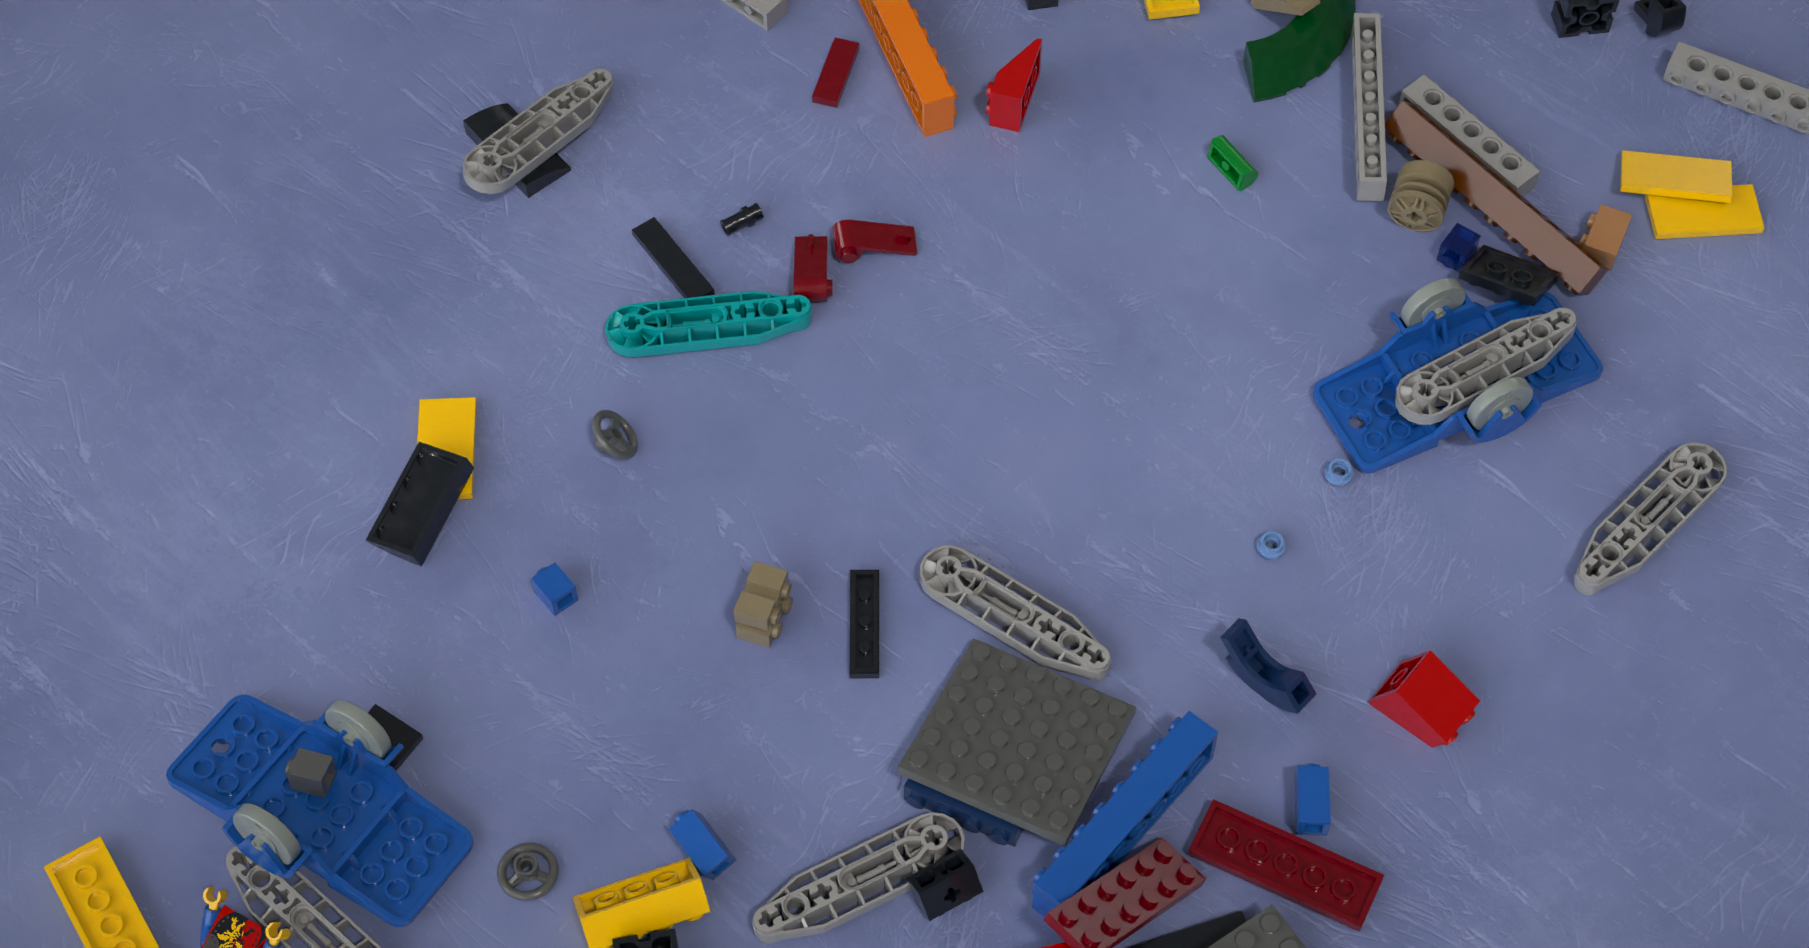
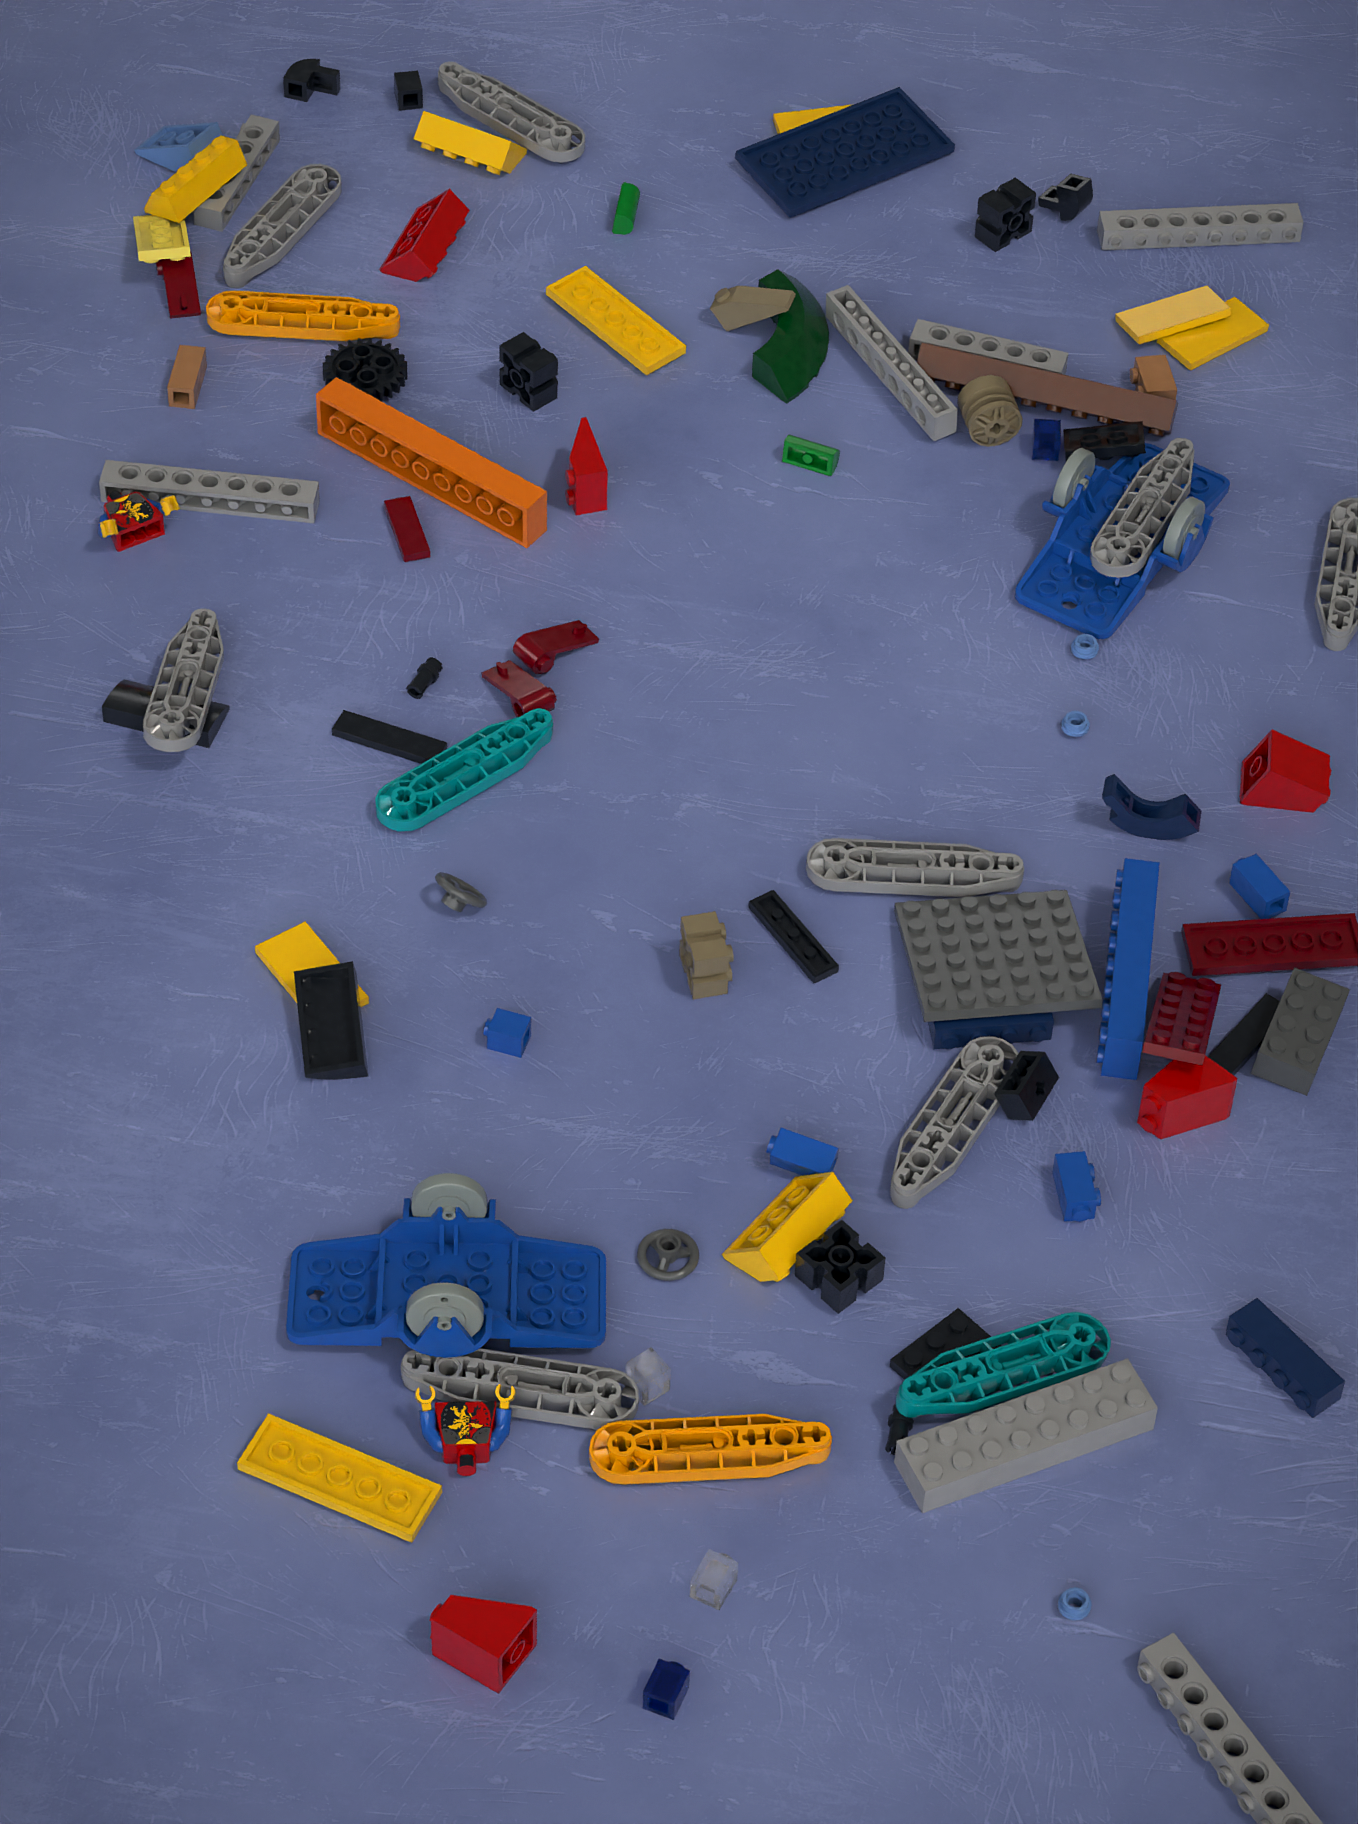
camera: 35 degrees left, 10 degrees down
(311, 772) = (431, 1259): dark grey brick -> none

